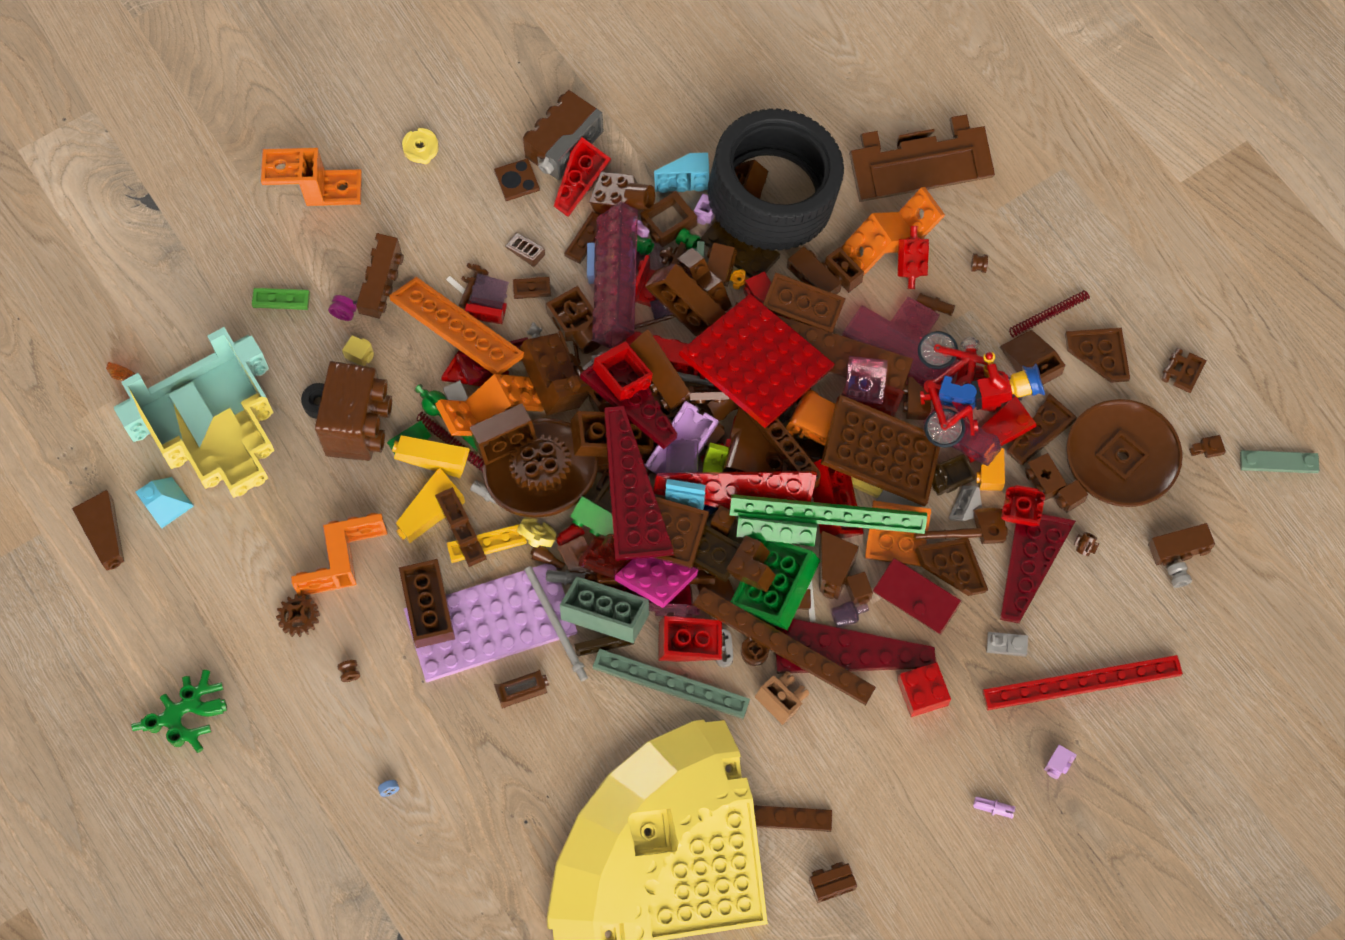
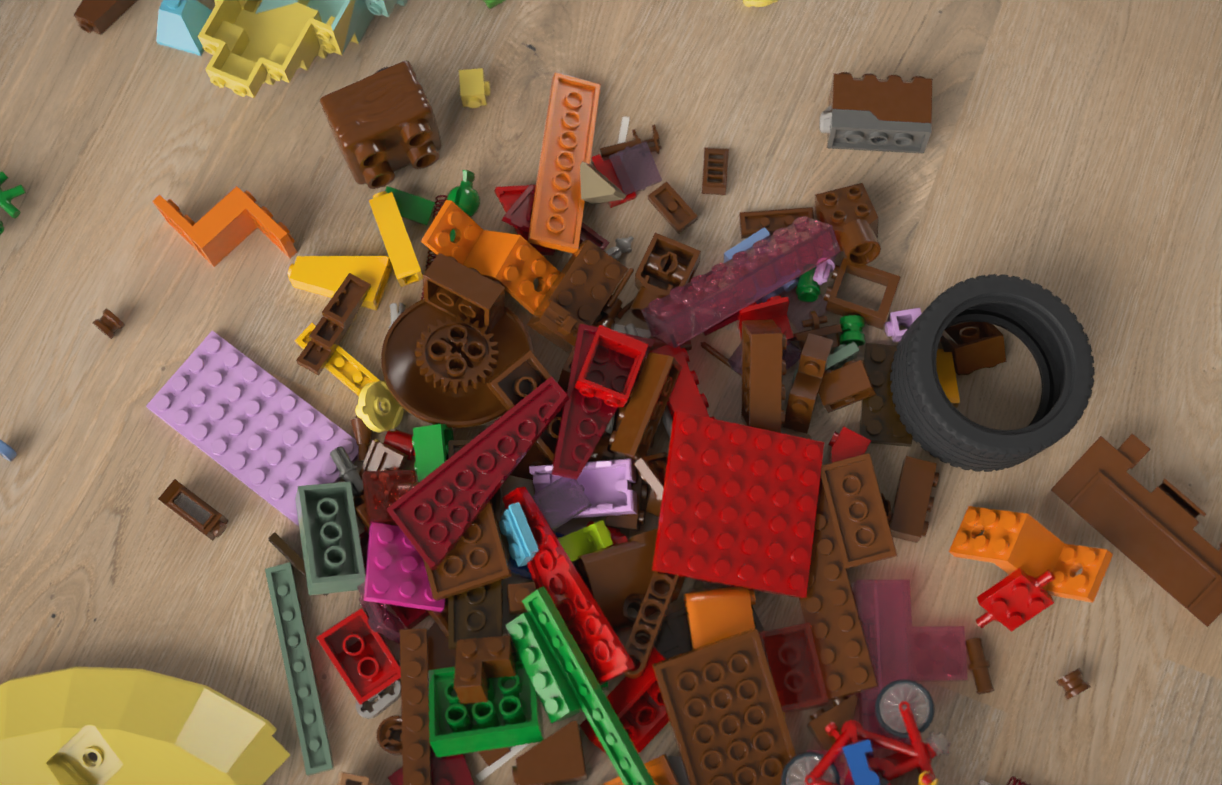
camera: 60 degrees right, 5 degrees up
(299, 607) = (138, 233): reddish brown gear -> none
(342, 308) = (510, 39): magenta wheel -> none
(380, 276) = (572, 48): reddish brown wedge -> none
(426, 603) = (220, 348): reddish brown brick -> none
(455, 392) = (488, 215): light grey panel -> none
(490, 316) = (596, 187): none -> dark tan slope
(516, 179) = (793, 105): reddish brown tile -> none
(577, 666) = (252, 553): light grey bar -> none
(580, 175) = (844, 164): red wedge -> none
(684, 174) = (925, 268): medium azure slope -> none
(735, 276) = (846, 412): light orange plate -> none
(845, 268) = (942, 529): reddish brown brick -> none
(865, 379) = (806, 646): clear pink slope -> none

